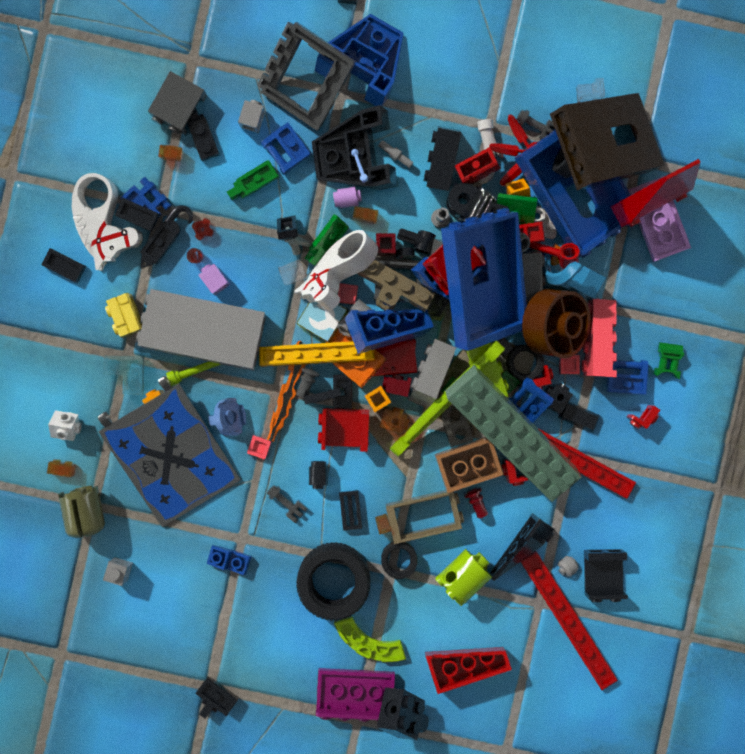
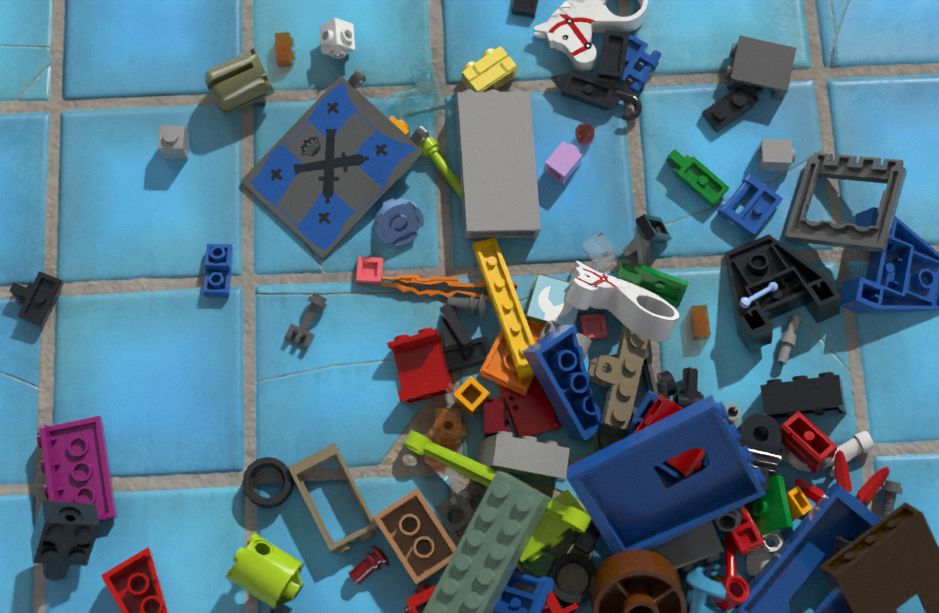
camera: 75 degrees right, 15 degrees down
(170, 152) = (699, 75): clear orange piece -> none
(202, 224) = (627, 135): clear red plate -> none
(318, 474) = (353, 349): black brick -> none
(328, 608) = (196, 377): black tyre -> none
(347, 197) = (714, 293): lavender brick -> none
(348, 494) = (321, 413): black tile -> none
(365, 645) = (143, 474): lime tile -> none
(383, 524) = (309, 447): clear orange piece -> none
(386, 244) = (670, 354): dark red brick -> none

